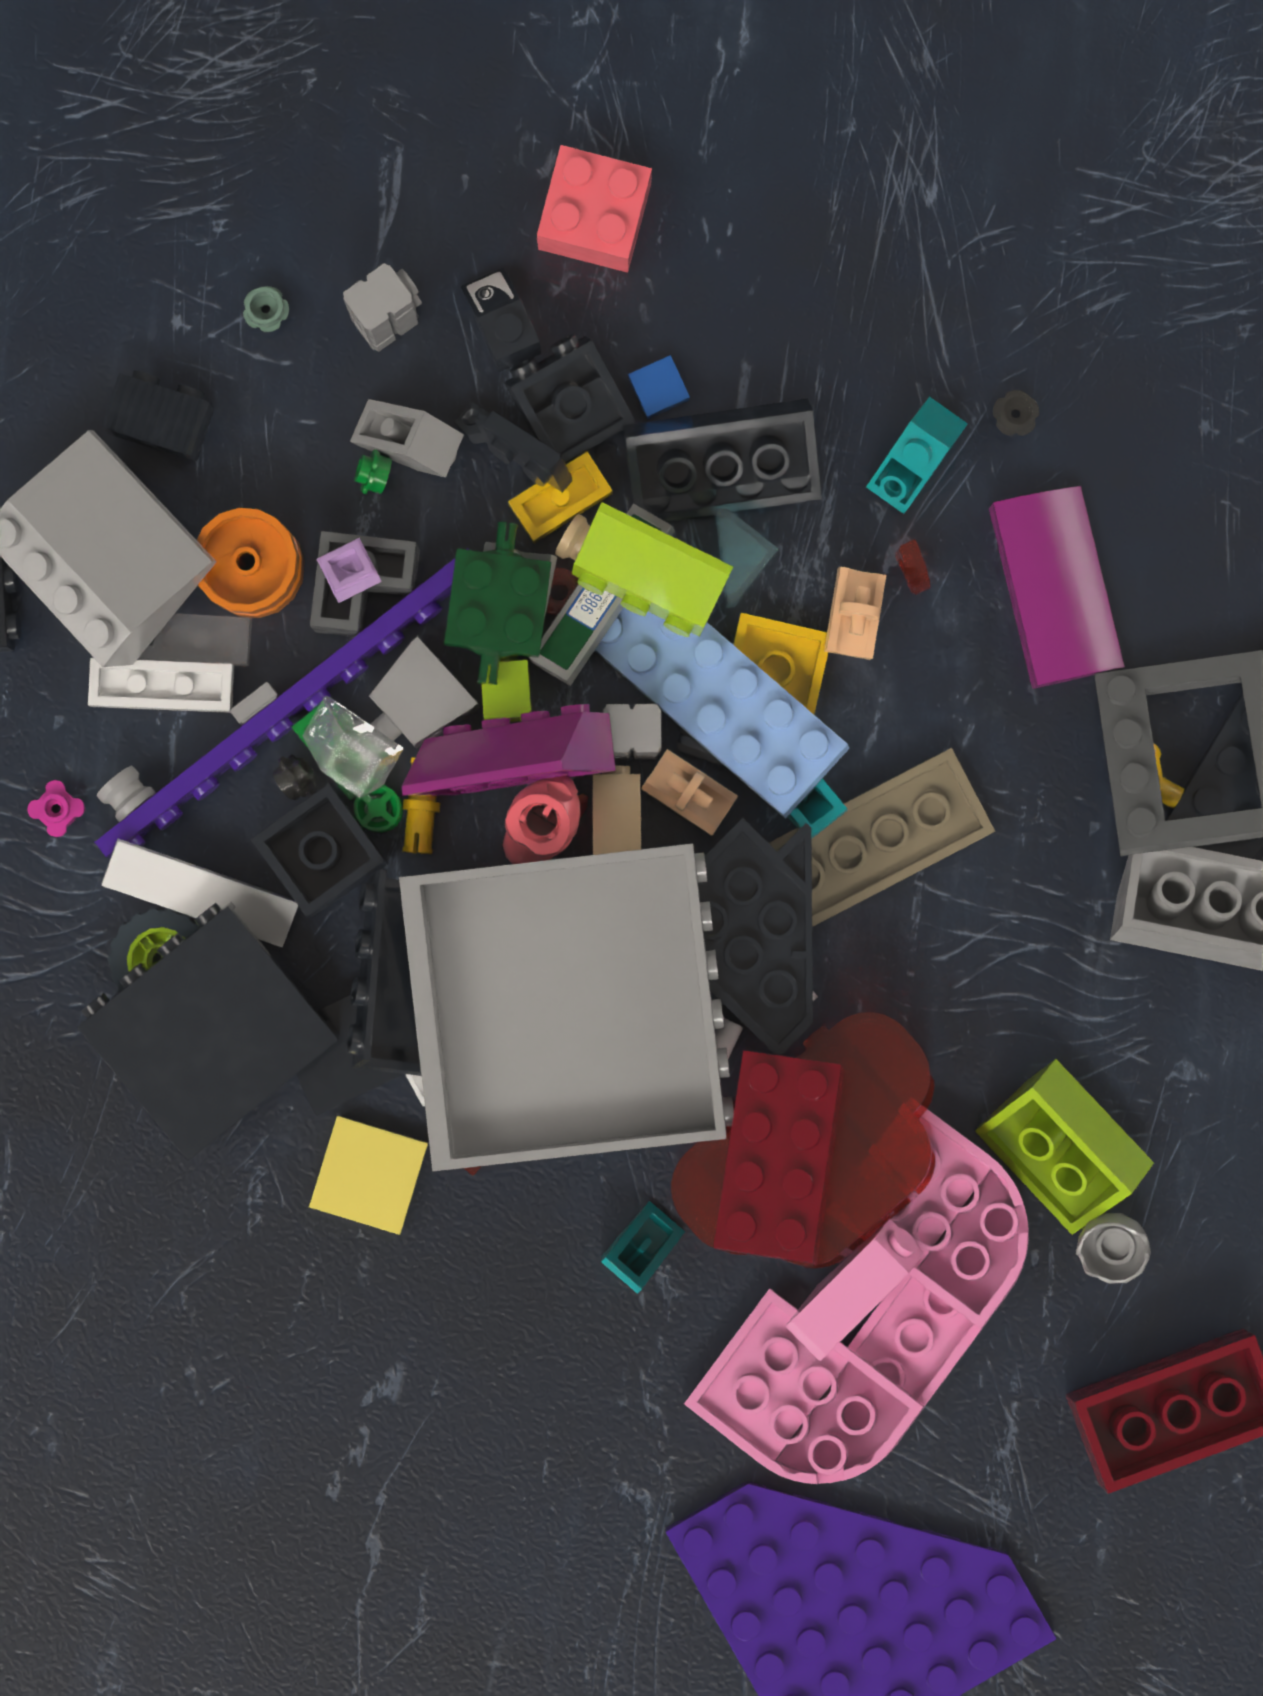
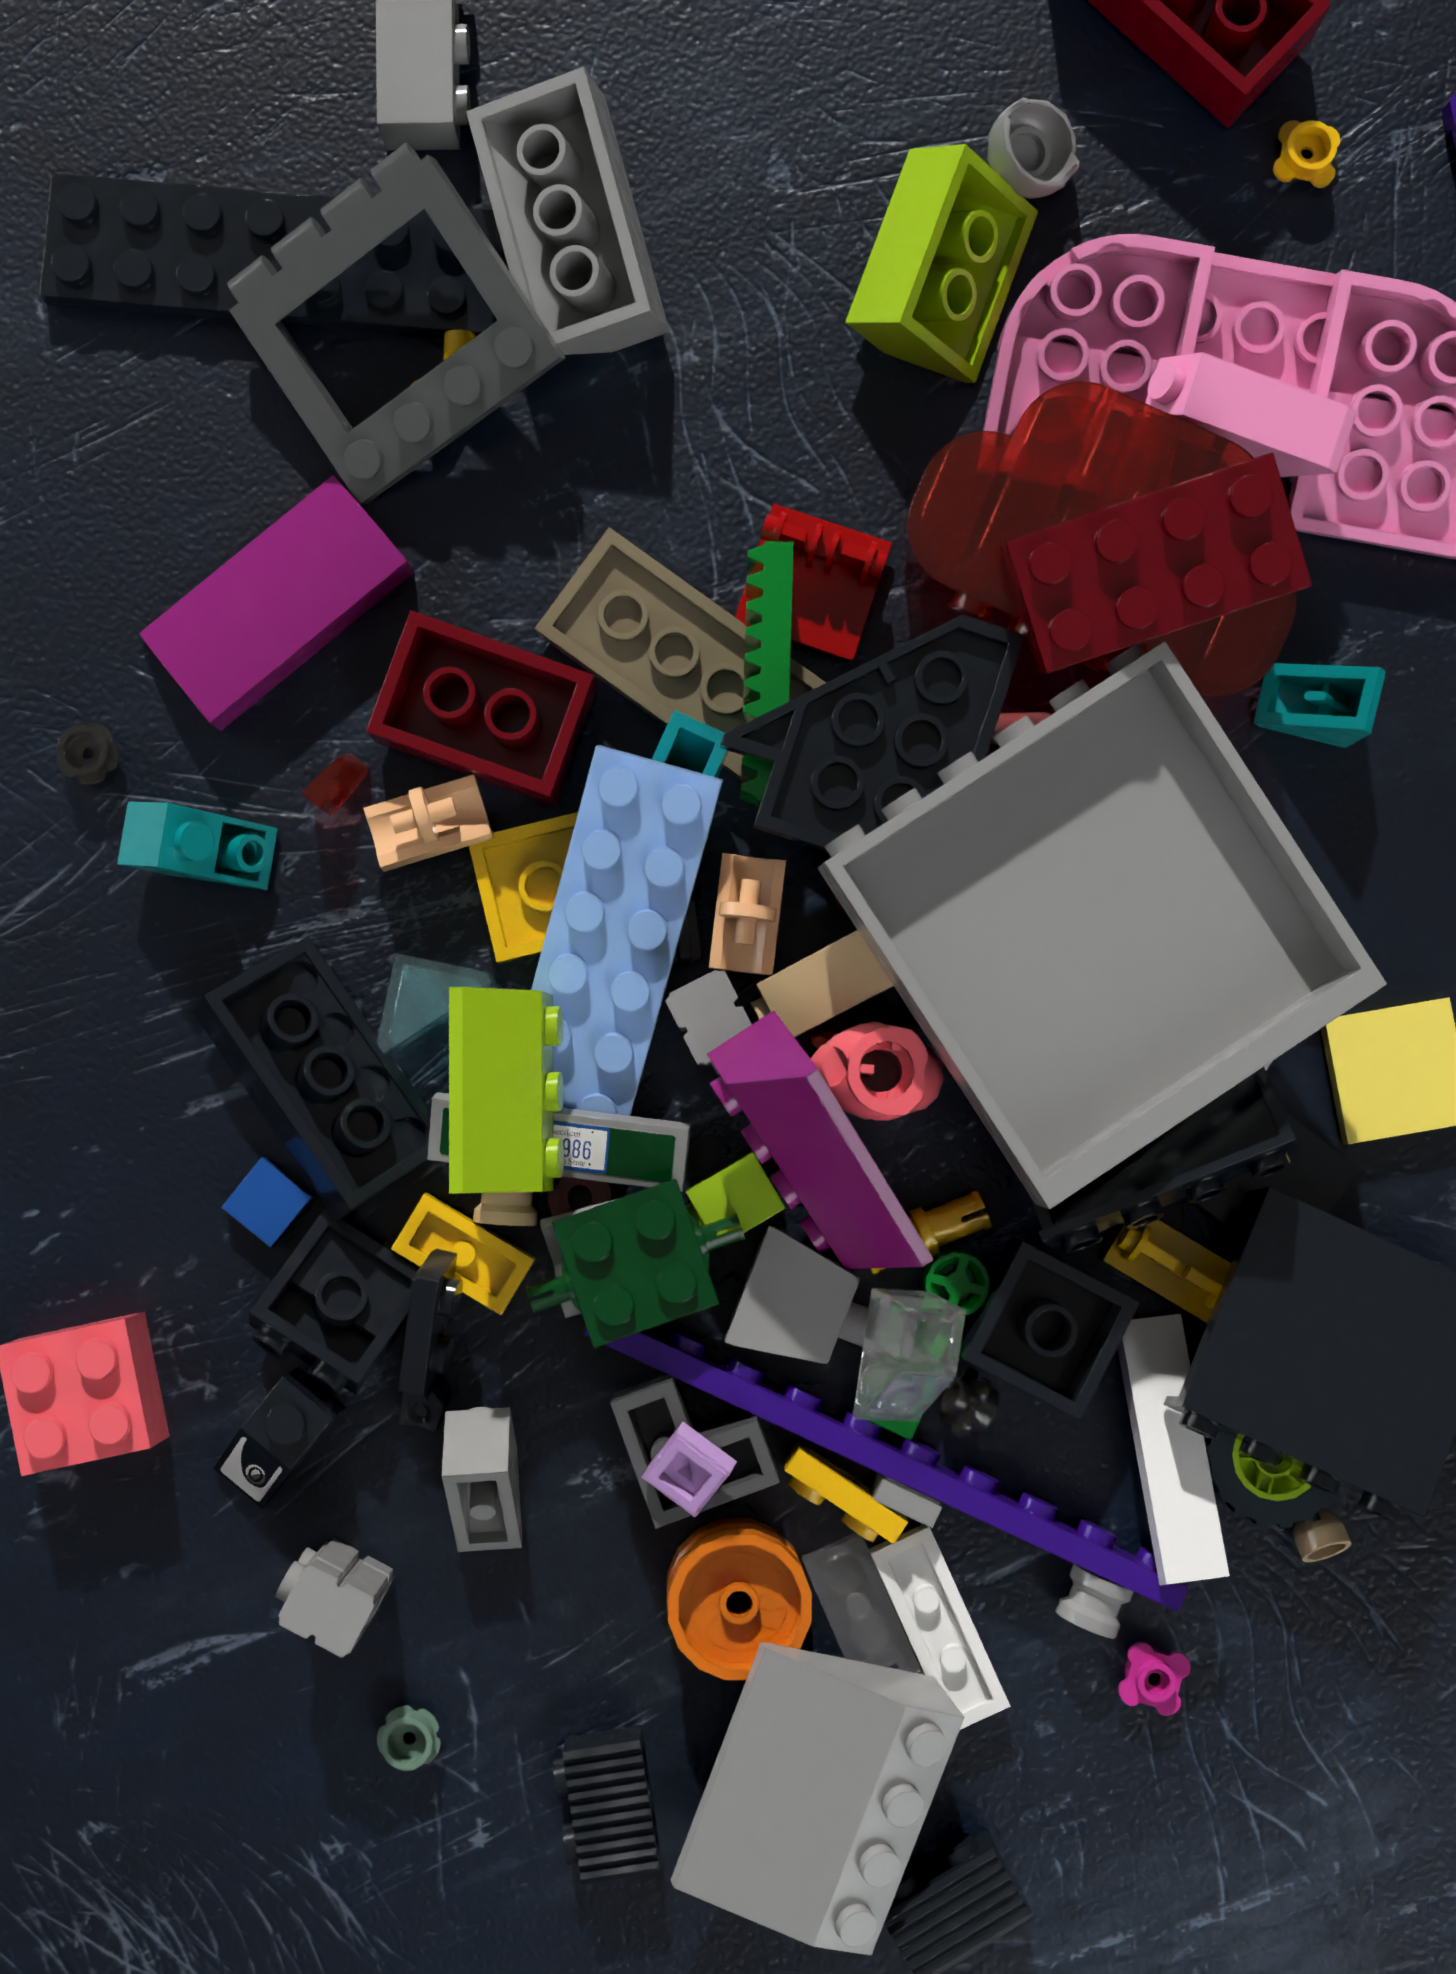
camera: 115 degrees left, 0 degrees up
(90, 964) = (1321, 1538): none -> tan hinge
(296, 655) = (820, 1478): none -> yellow plate
(320, 955) = (1170, 1266): none -> yellow hinge
(373, 472) = (547, 1500): green plate -> none
(859, 898) = (770, 647): none -> green gear
(892, 951) = (832, 579): none -> red hinge
(912, 685) = (482, 708): none -> dark red brick
(1021, 1452) = (1319, 140): none -> yellow plate

